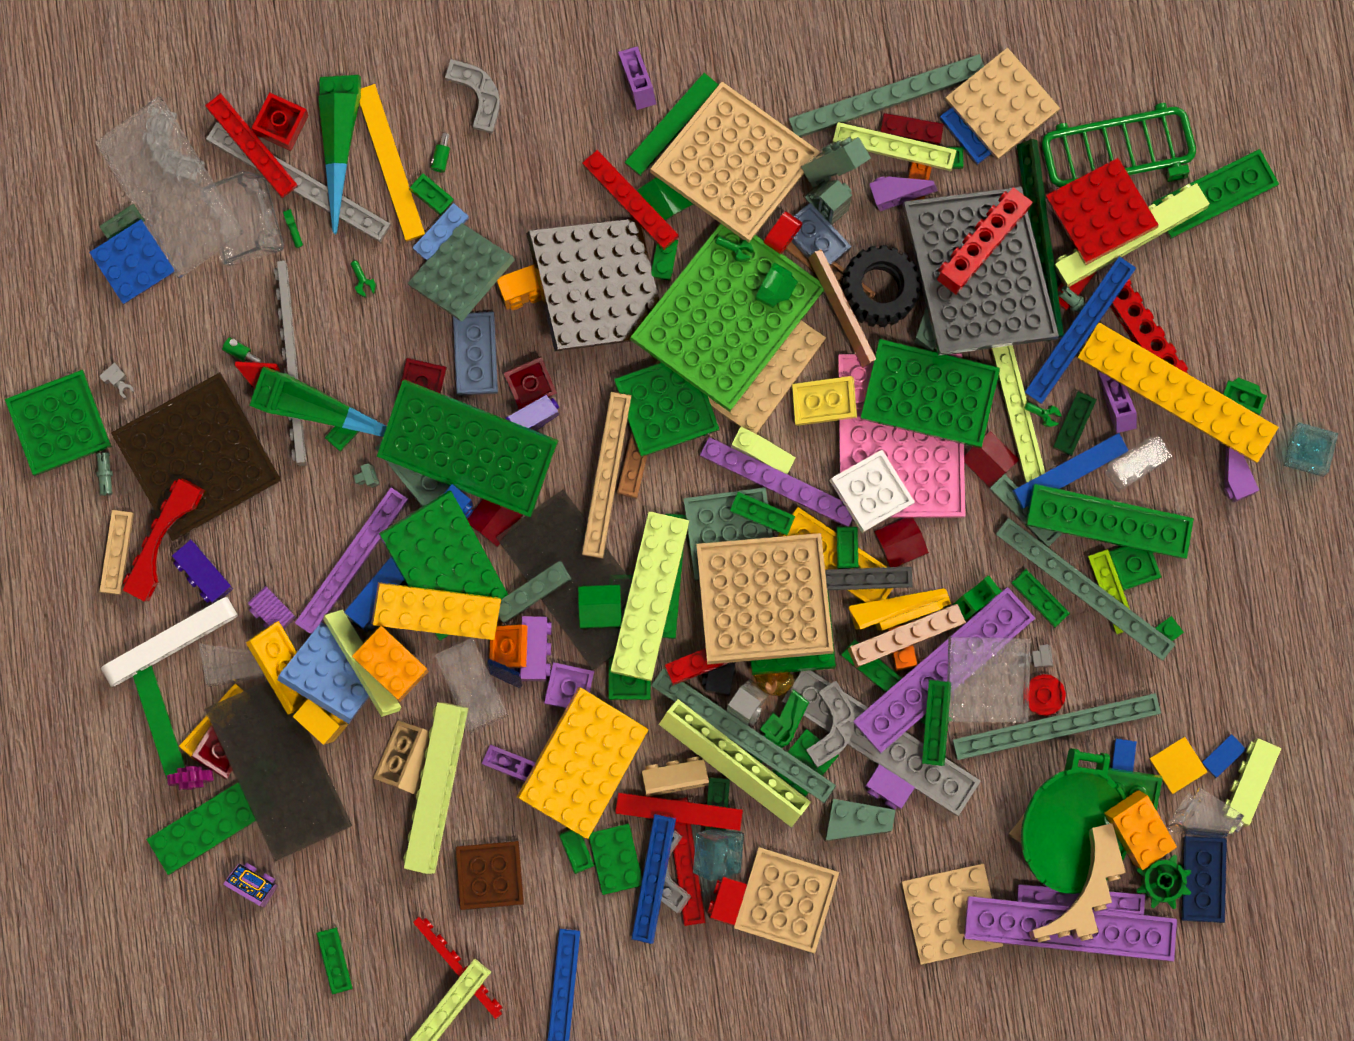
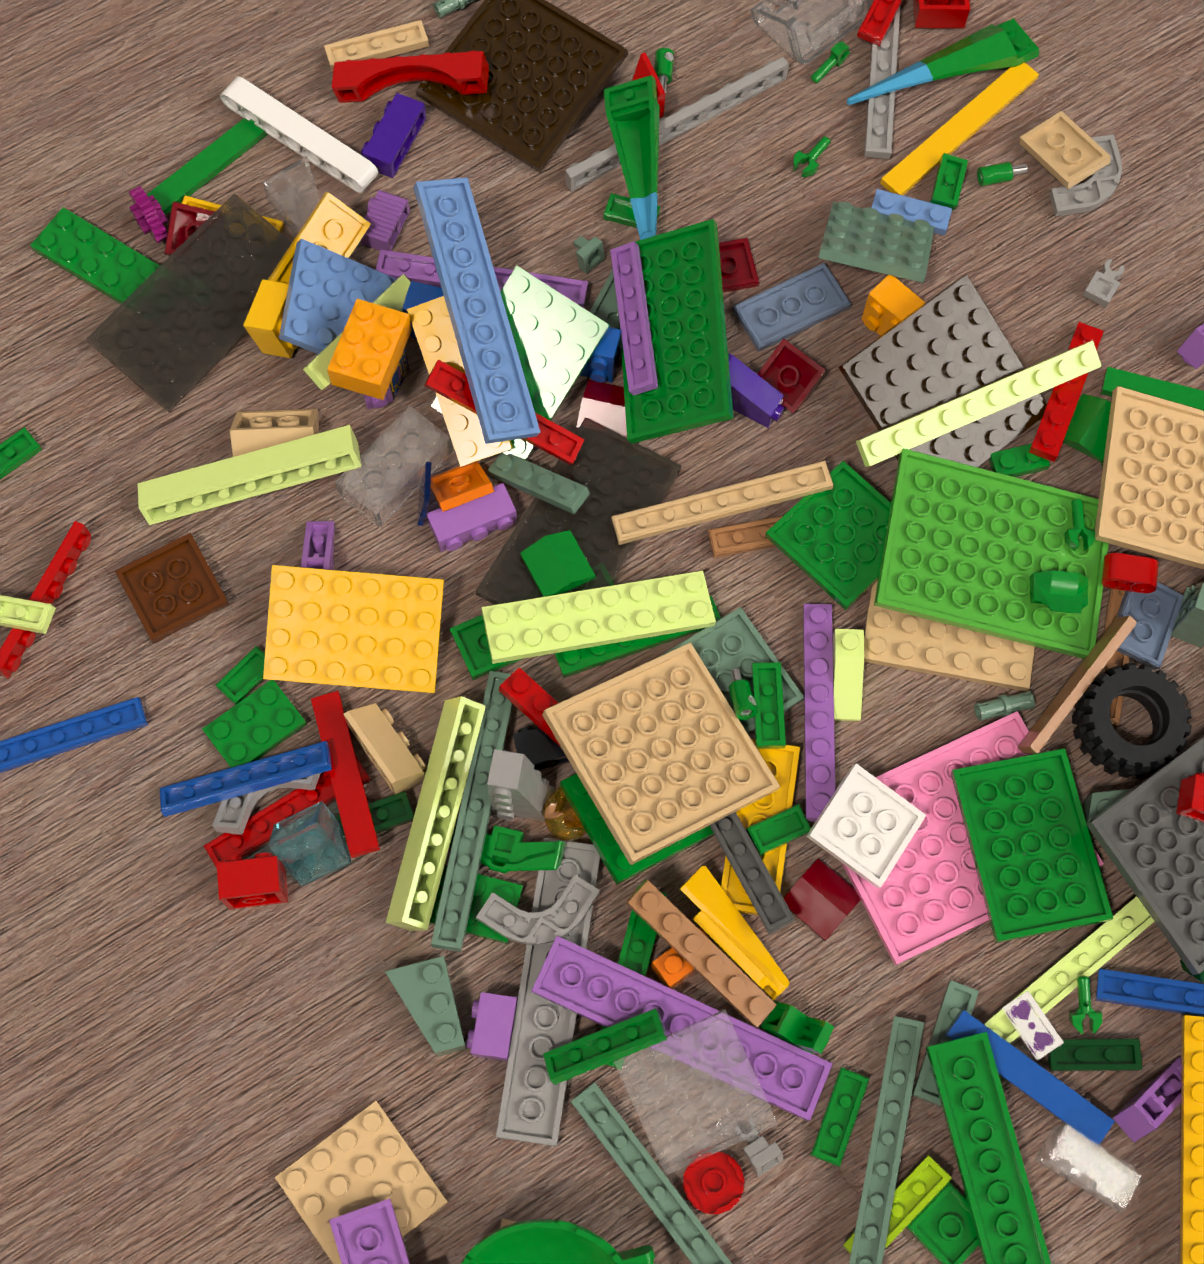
camera: 65 degrees right, 10 degrees down
(251, 885) = (48, 330): slope -> none
(401, 577) = (476, 310): none -> medium blue plate
(444, 470) = (634, 318): none -> medium lavender plate
(447, 101) = (1065, 150): none -> tan plate
(478, 592) = (552, 437): none -> red plate
(563, 131) = (1104, 284): none -> light grey plate
(564, 683) = (452, 567): medium lavender plate -> none
(619, 267) = (978, 403): none -> yellowish green plate
(748, 528) = (741, 696): none -> green piece
(786, 900) = (288, 960): tan plate -> none
(824, 400) = (950, 719): light yellow plate -> none
(830, 359) = (1004, 705): none -> sand green pin
(991, 460) = (988, 965): dark red slope -> none
(1040, 452) = (1032, 1025): none -> clear tile

